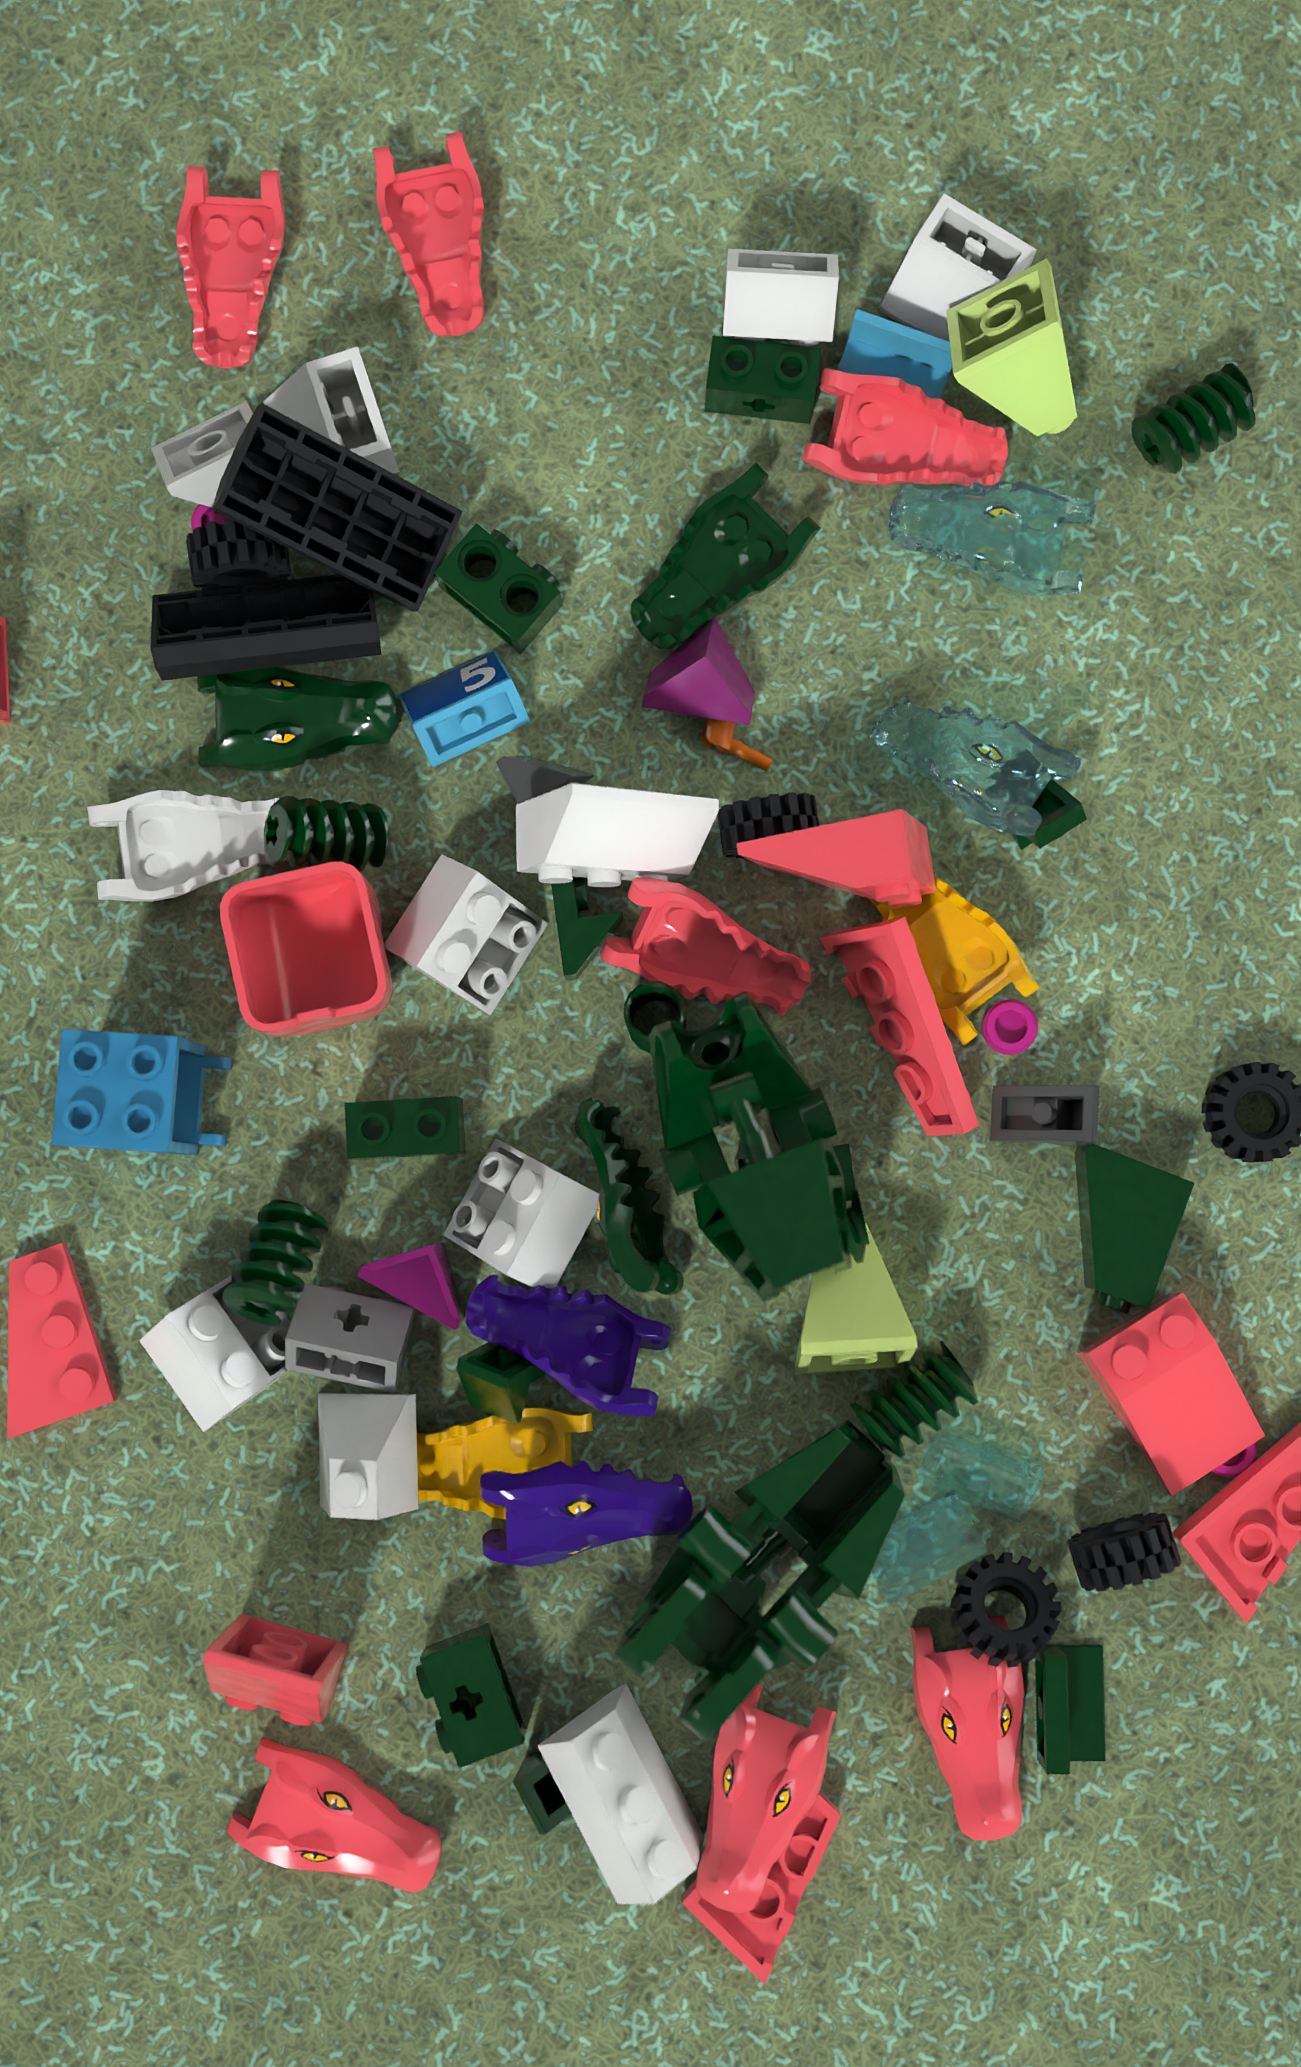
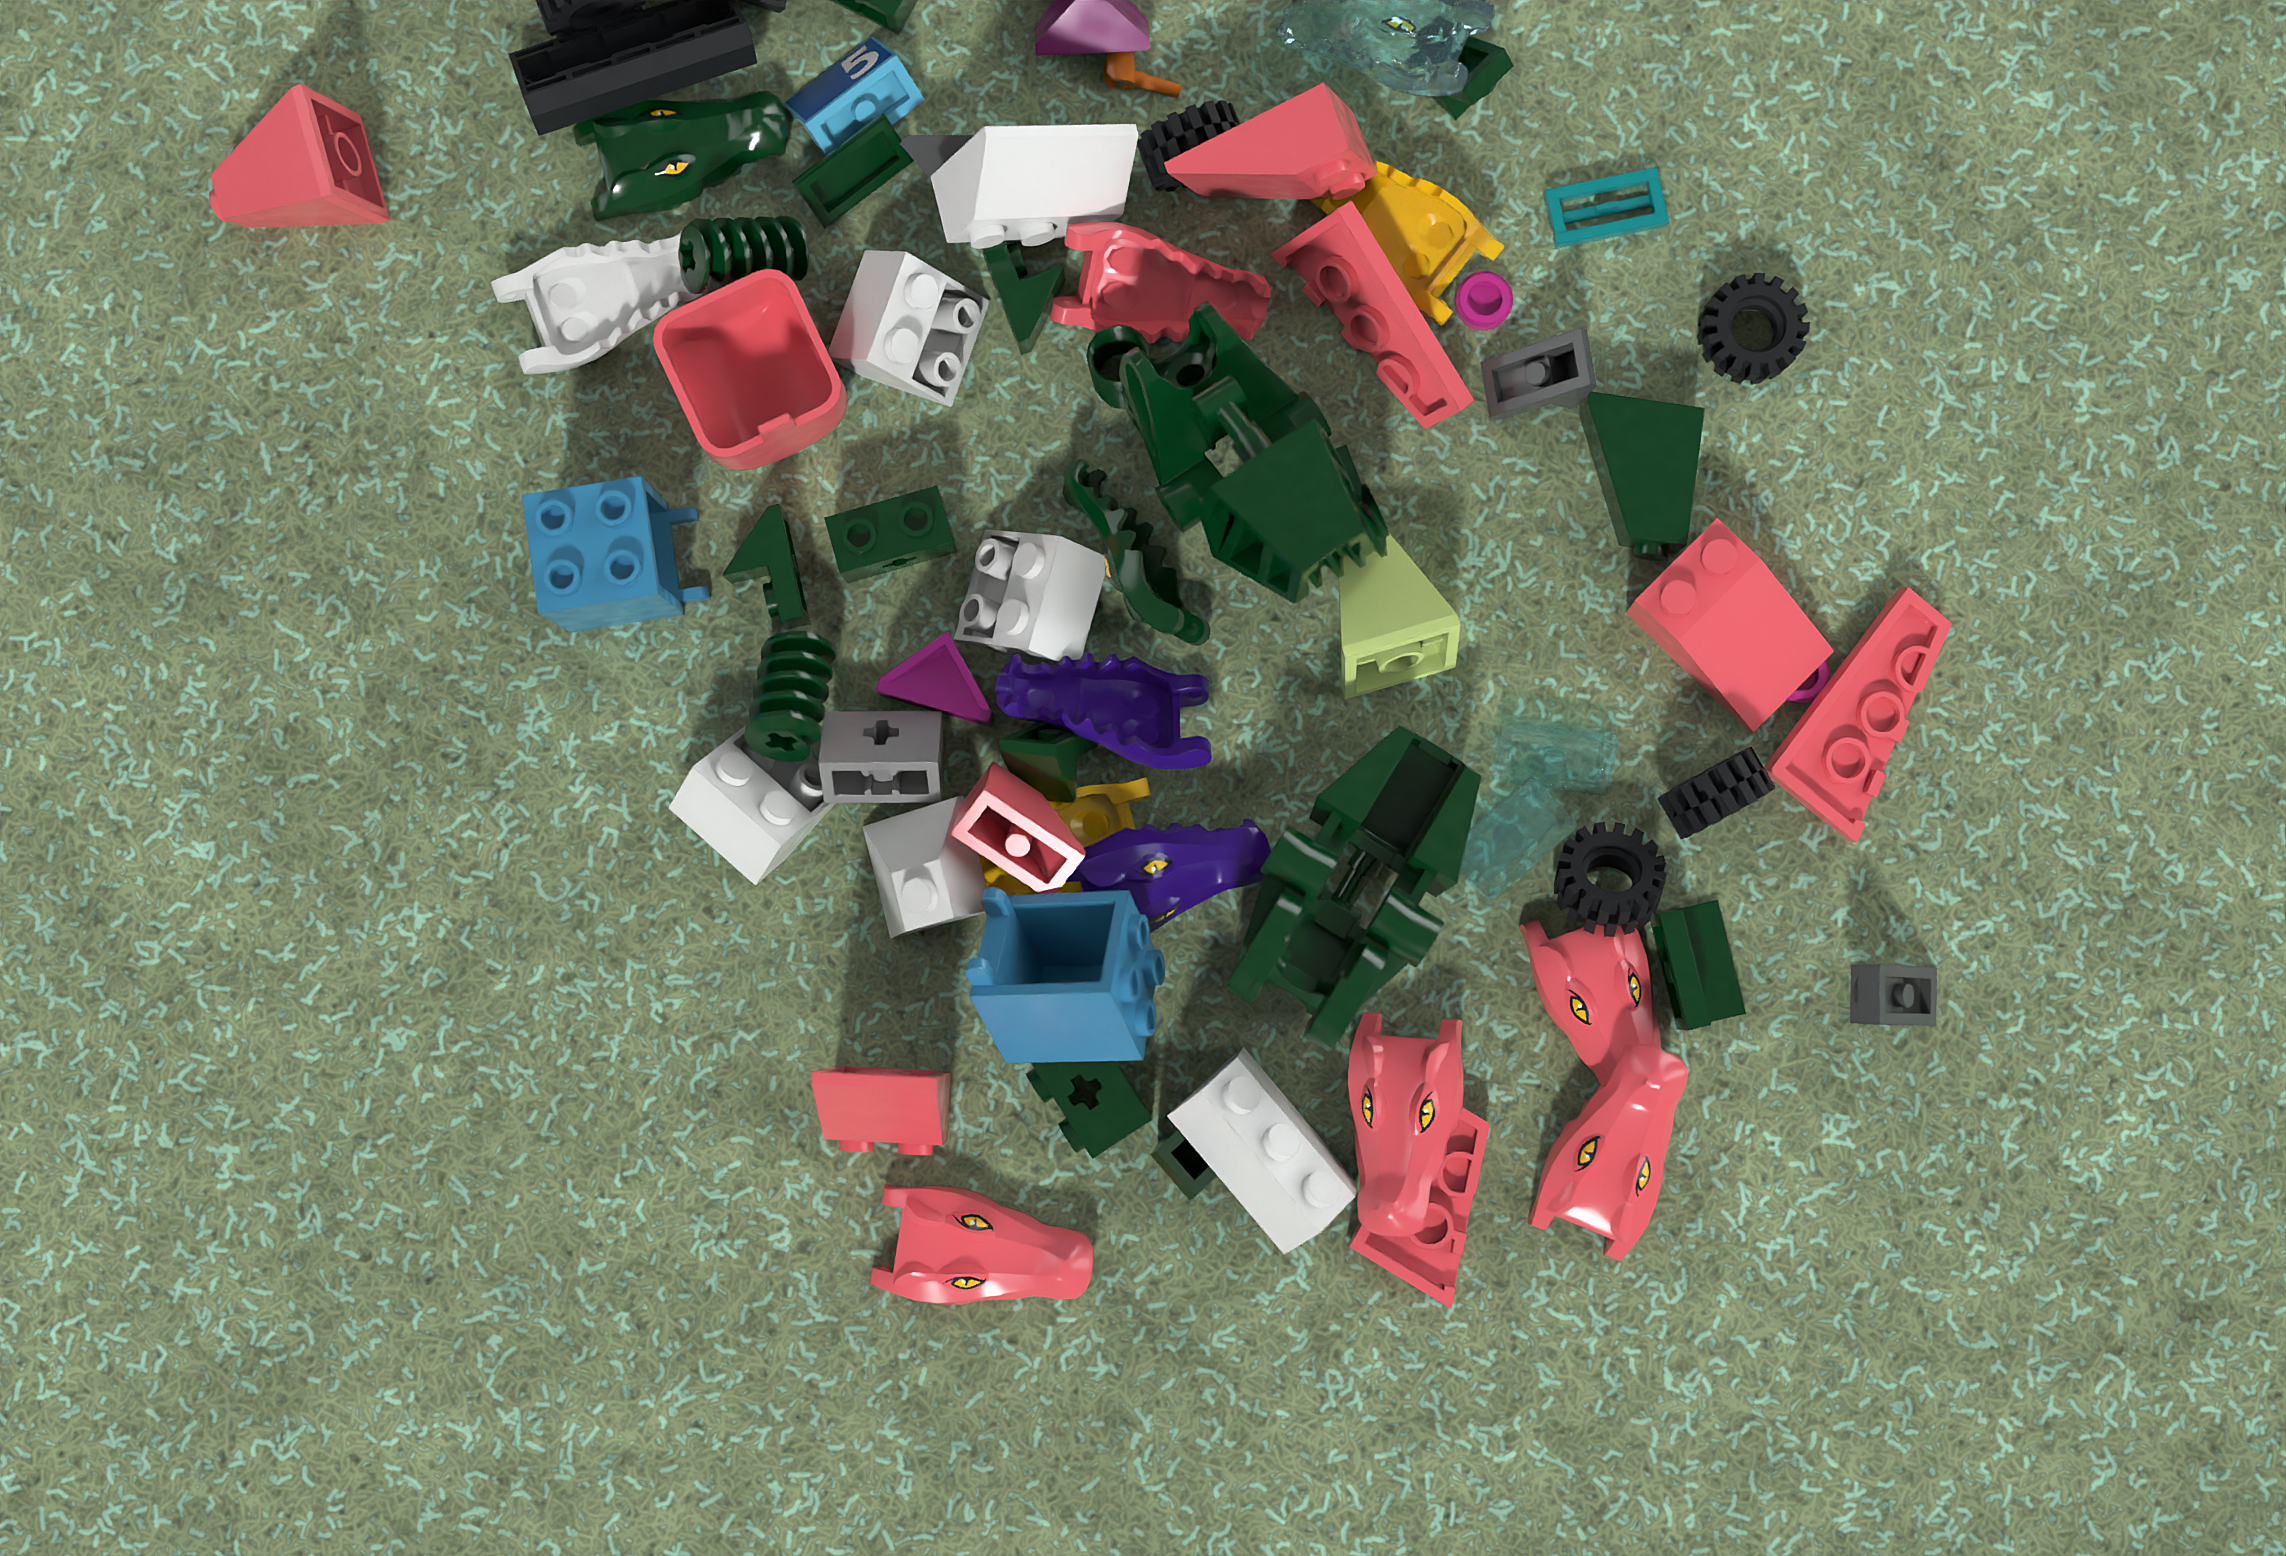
camera: 10 degrees left, 0 degrees up
(52, 1344) = (578, 837): coral wing -> none
(293, 1118) = (771, 552): none -> dark green slope
(447, 775) = (853, 170): none -> dark green tile
(456, 1447) = (1017, 831): none -> coral slope
(471, 1597) = (1066, 976): none -> dark azure container
(916, 1401) = (1471, 692): dark green piece -> none
(947, 1876) = (1612, 1157): none -> coral animal
(1096, 965) = (1558, 219): none -> teal tile
(1246, 1779) = (1893, 995): none -> dark grey slope

